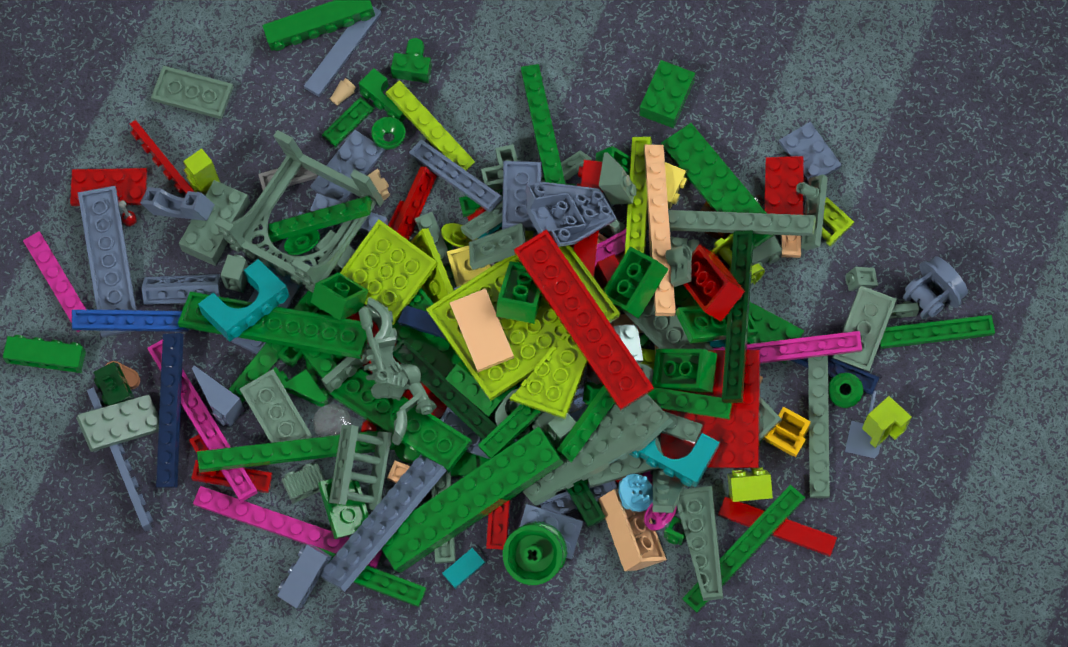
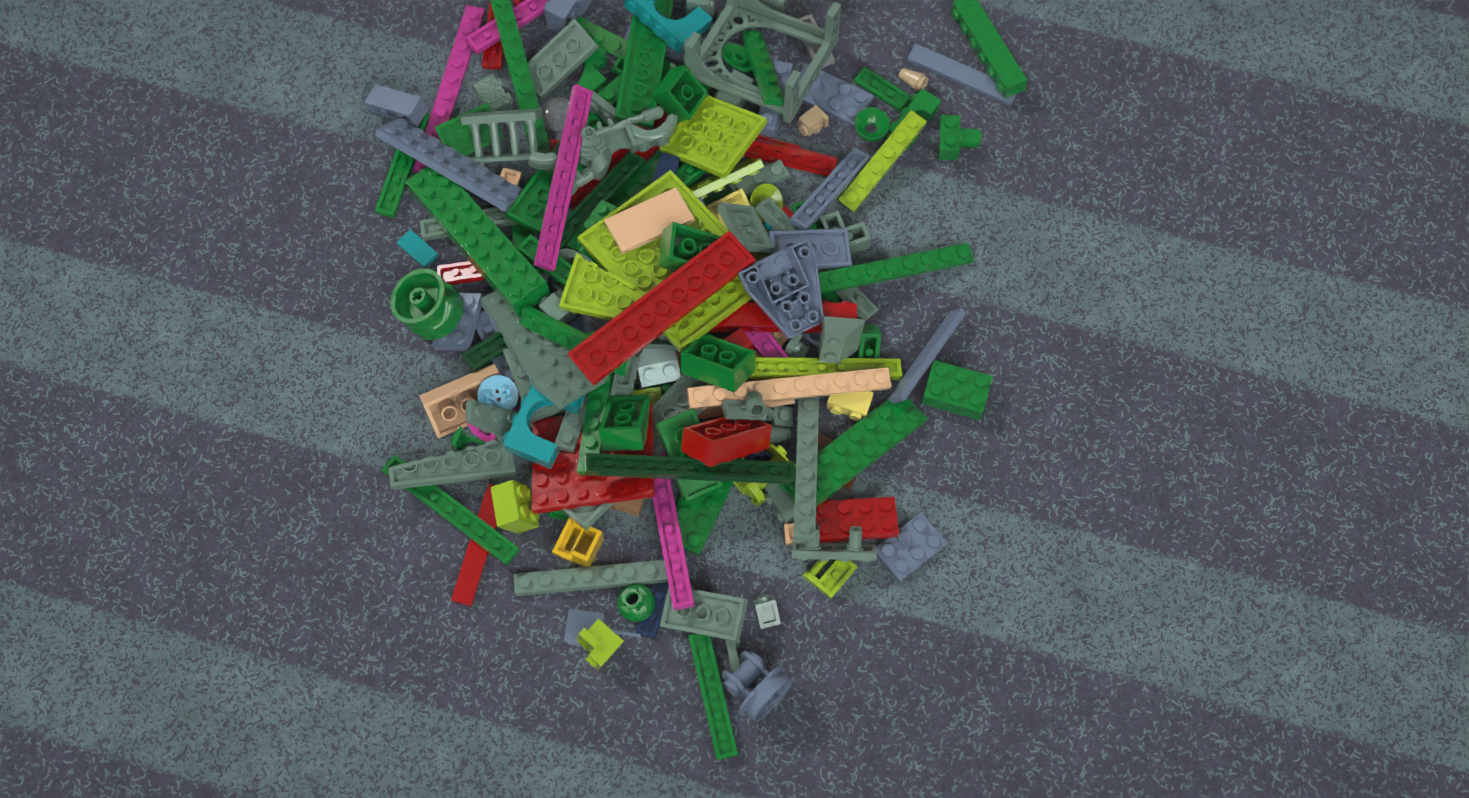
camera: 80 degrees right, 0 degrees up
(425, 404) = (563, 179): none -> dark pink plate
(632, 113) = (927, 355): none -> sand blue tile

